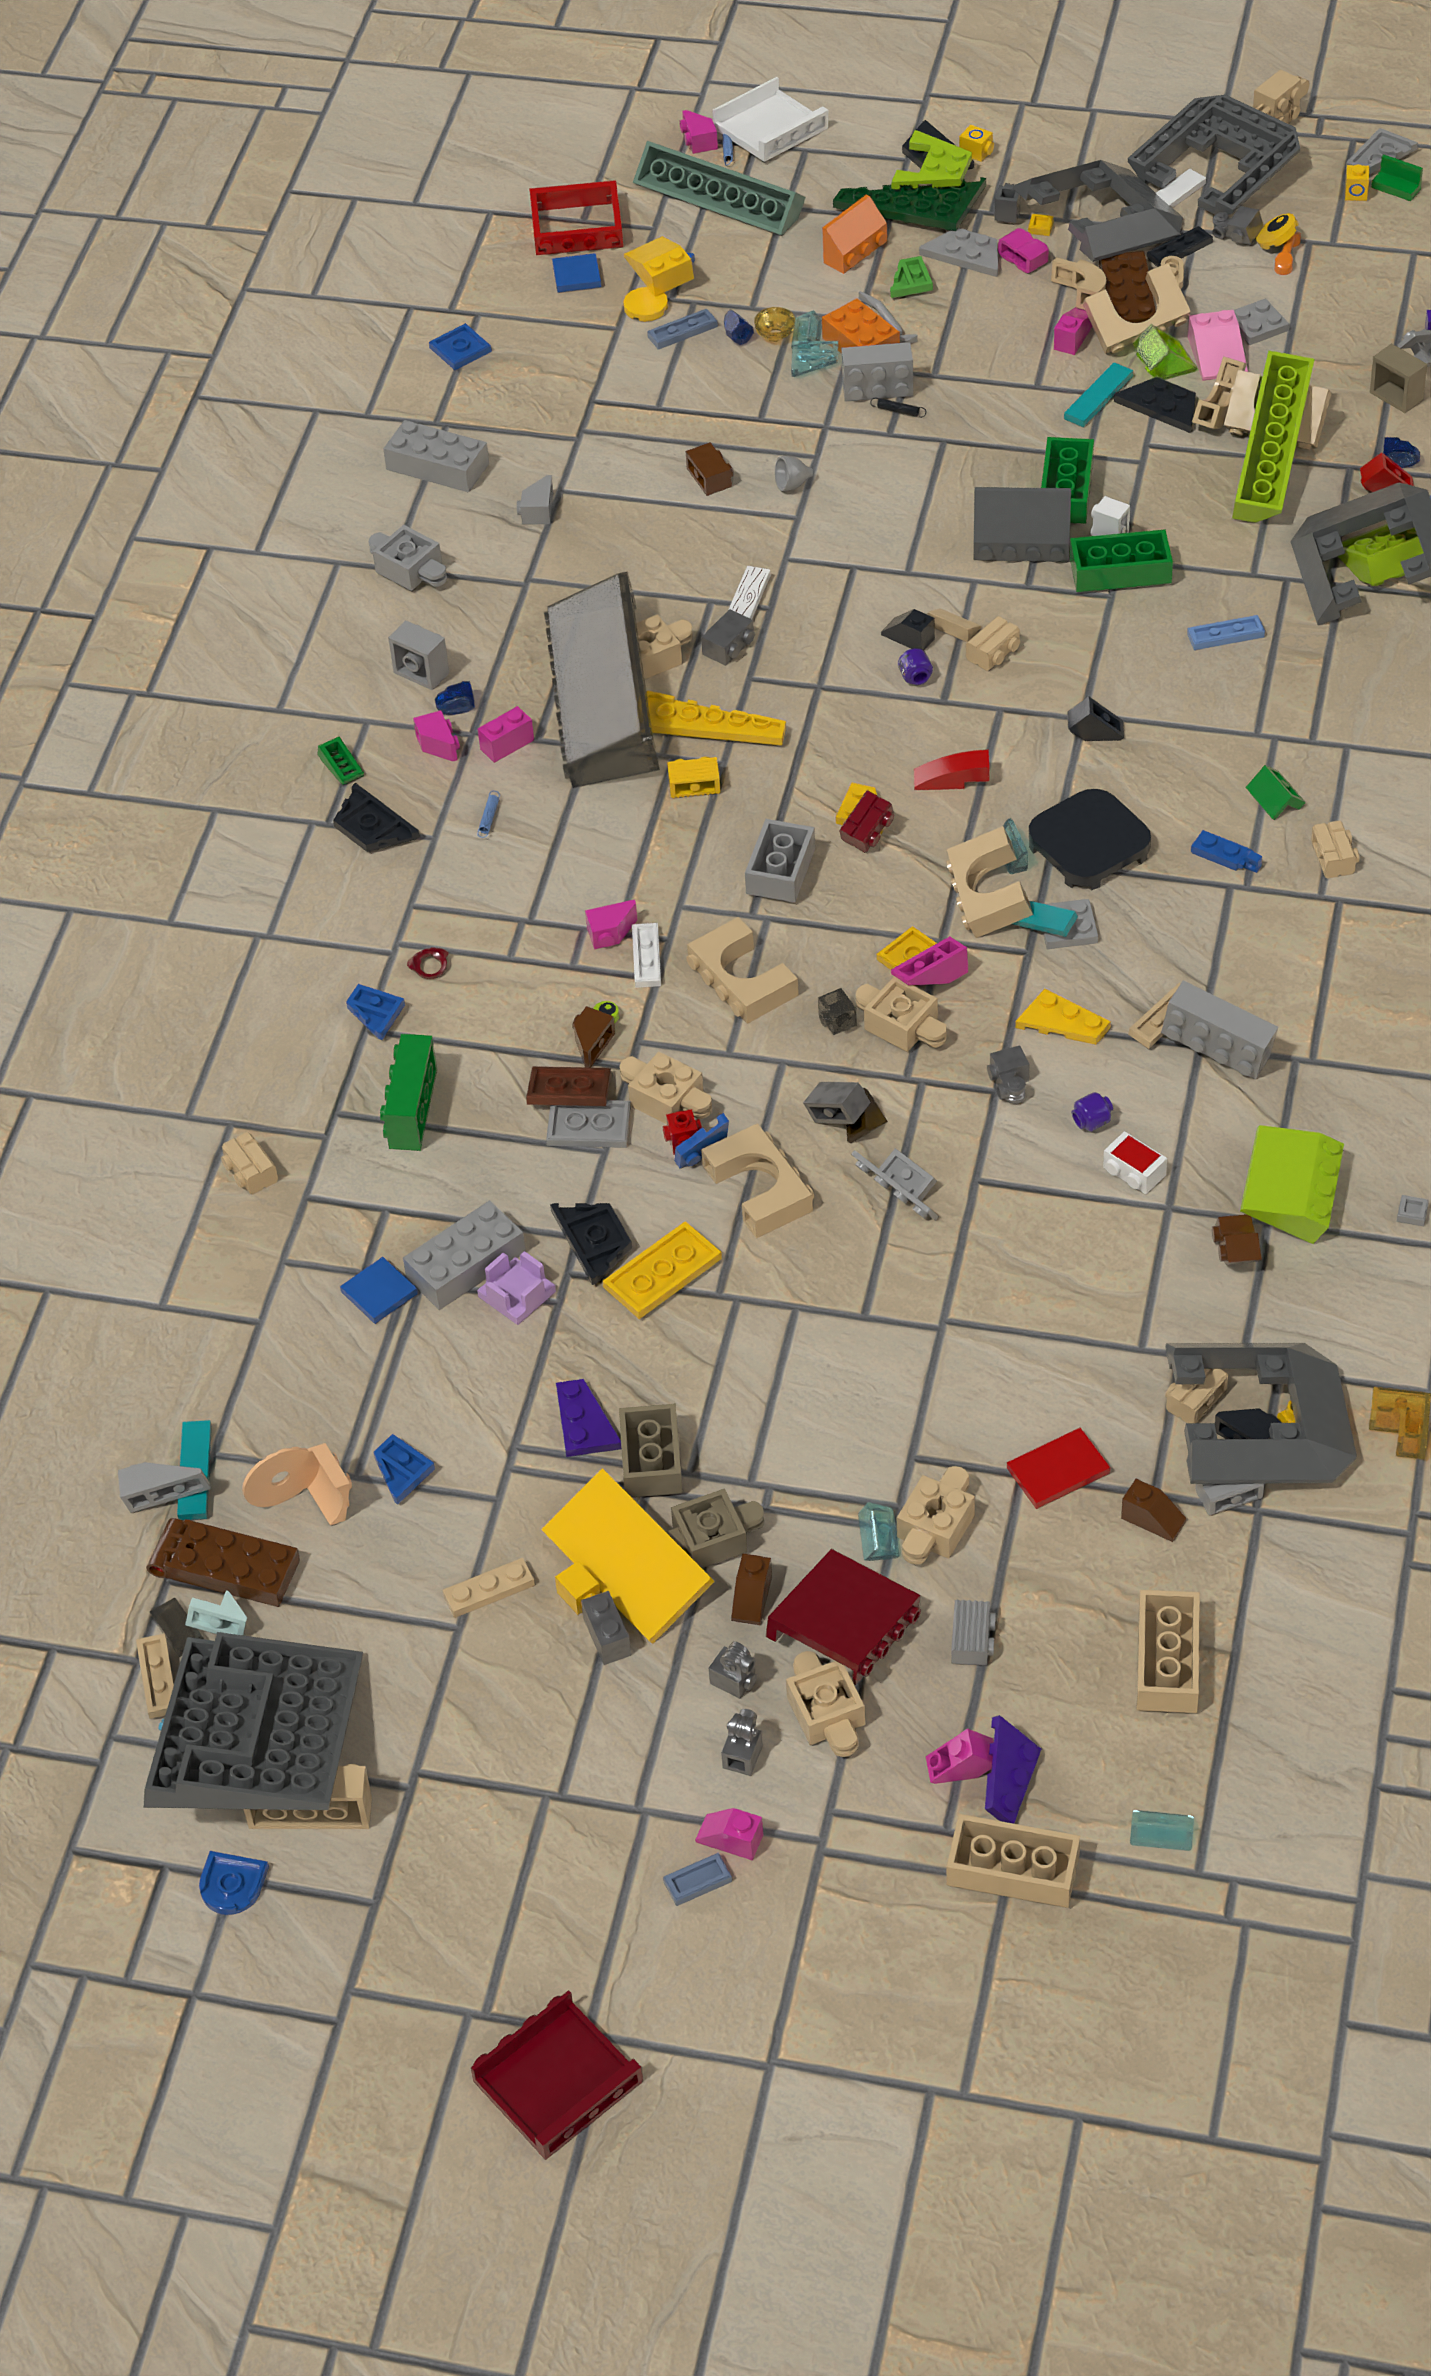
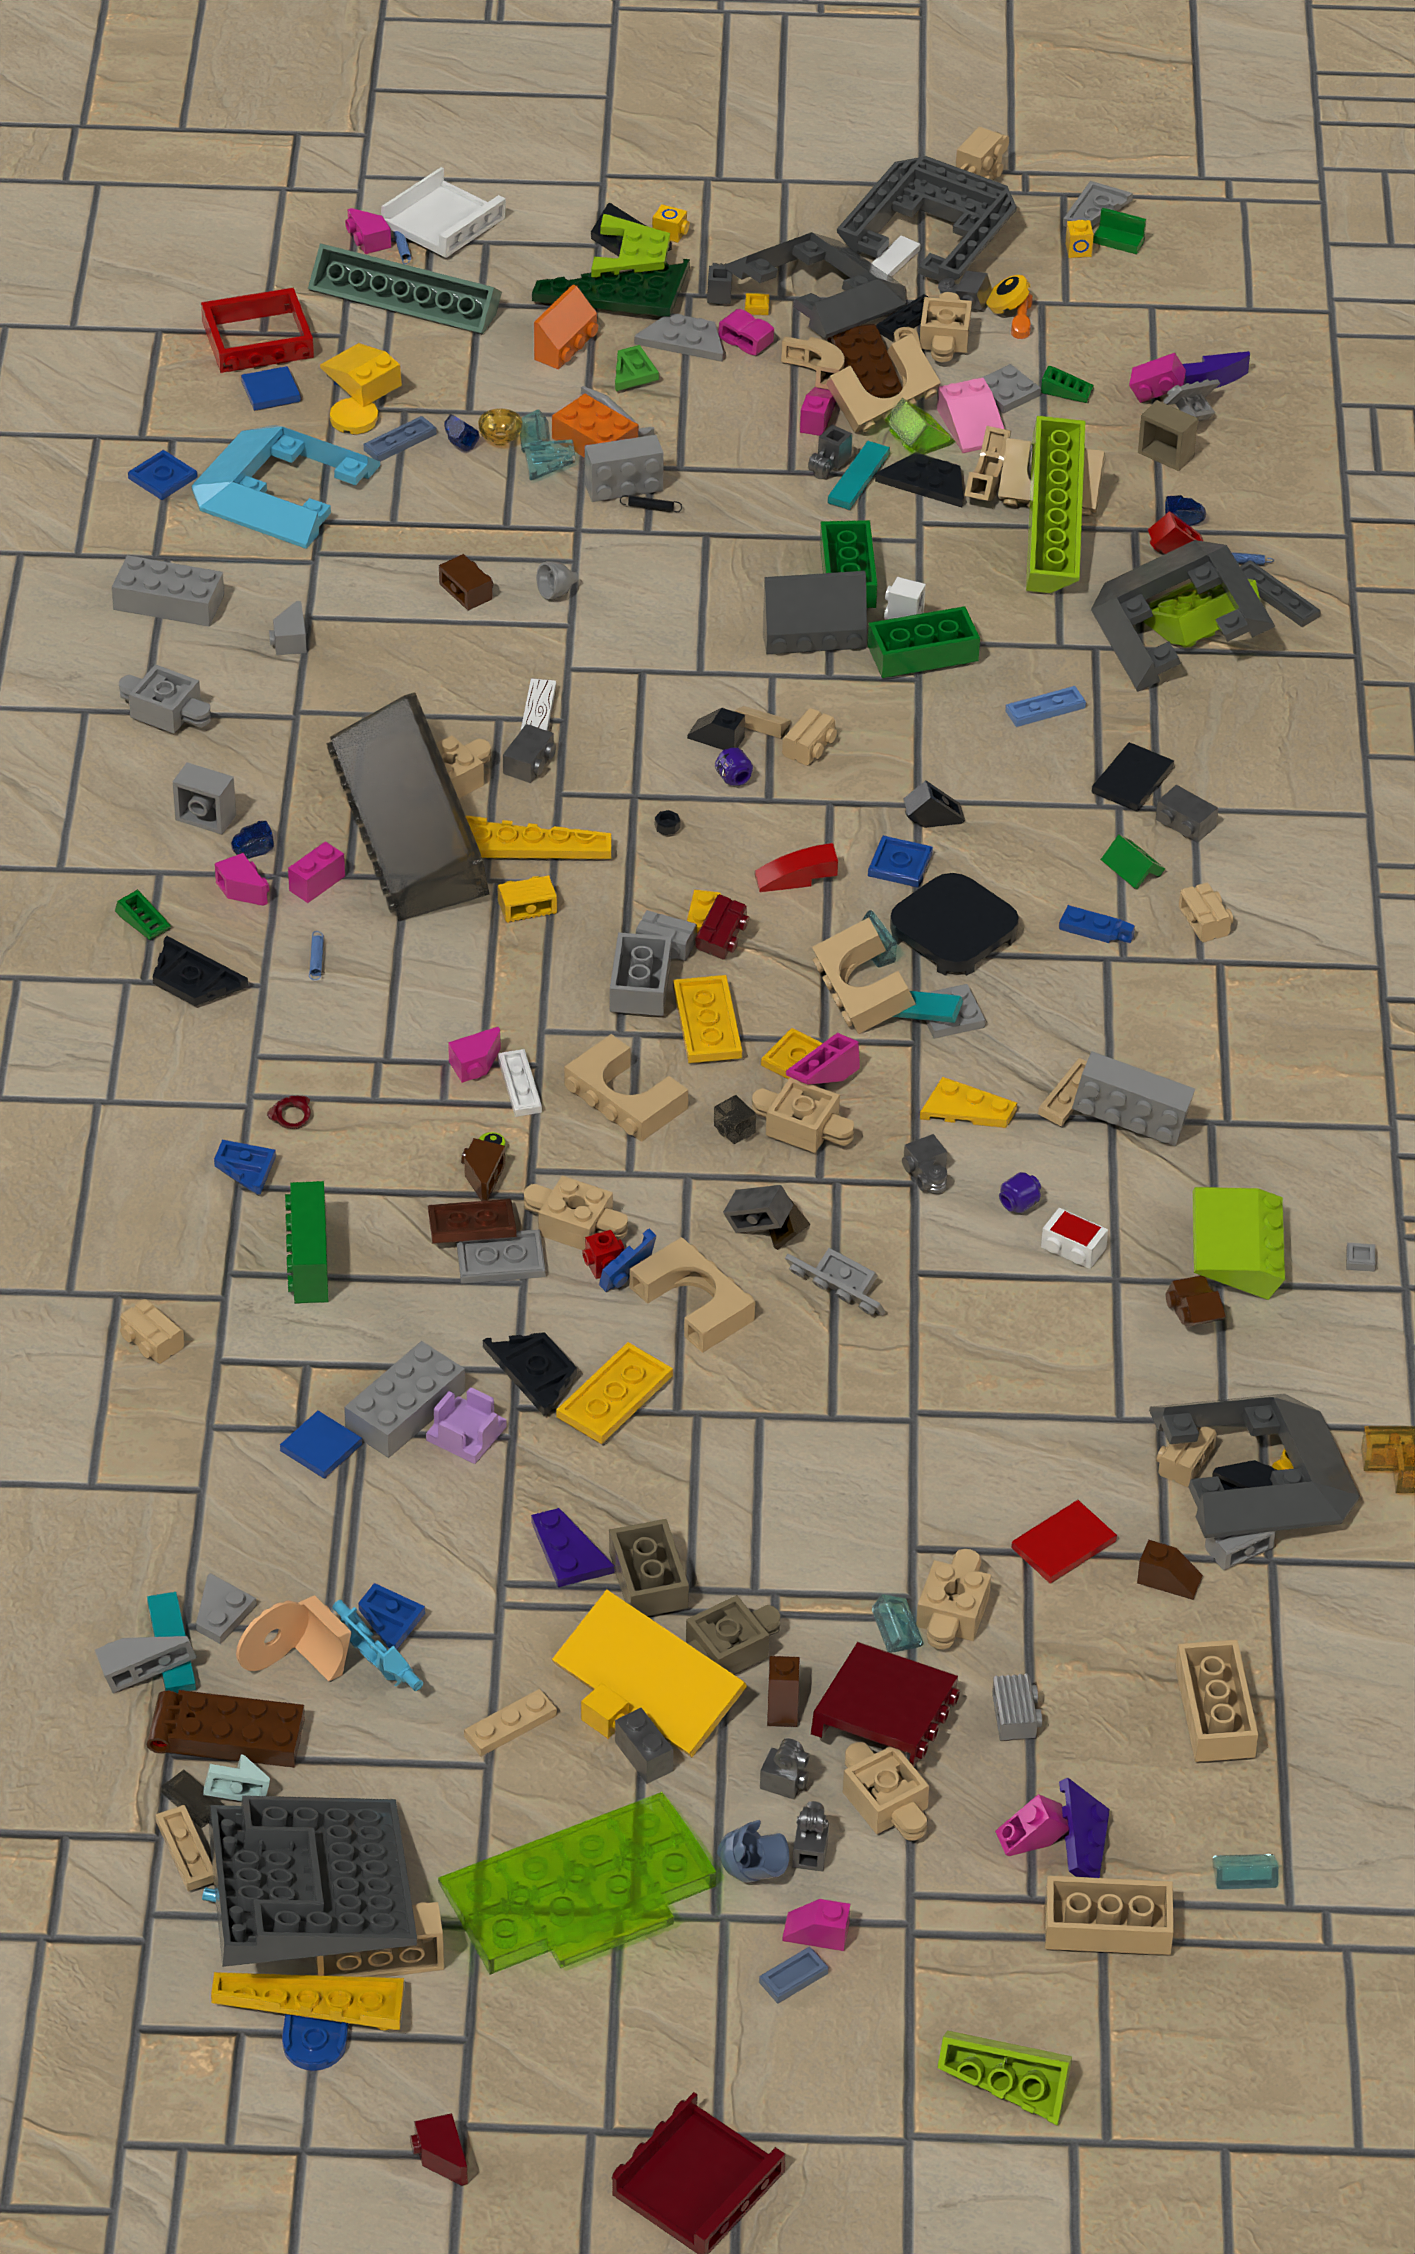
camera: 15 degrees left, 5 degrees down
(249, 1442) = (222, 1609): none -> light grey wing
(254, 1845) = (334, 1998): none -> yellow wing
(319, 2011) = (440, 2147): none -> dark red slope
(366, 1485) = (389, 1661): none -> medium azure plate
(515, 1762) = (581, 1886): none -> clear neon green slope
(523, 374) = (233, 495): none -> medium azure slope
(682, 1753) = (753, 1856): none -> sand blue helmet
(825, 822) = (682, 932): none -> light grey brick
(834, 910) = (707, 1019): none -> yellow plate
(841, 715) = (667, 822): none -> black tile
(880, 2009) = (1009, 2071): none -> lime wedge
(1053, 772) = (900, 861): none -> blue tile
(1078, 370) = (833, 451): none -> flat silver brick
(1210, 257) = (945, 325): none -> tan brick
(1294, 708) = (1132, 776): none -> black tile
(1307, 320) = (1064, 385): none -> green slope
(1337, 750) = (1186, 813): none -> flat silver brick
(1400, 319) = (1157, 377): none -> dark pink brick

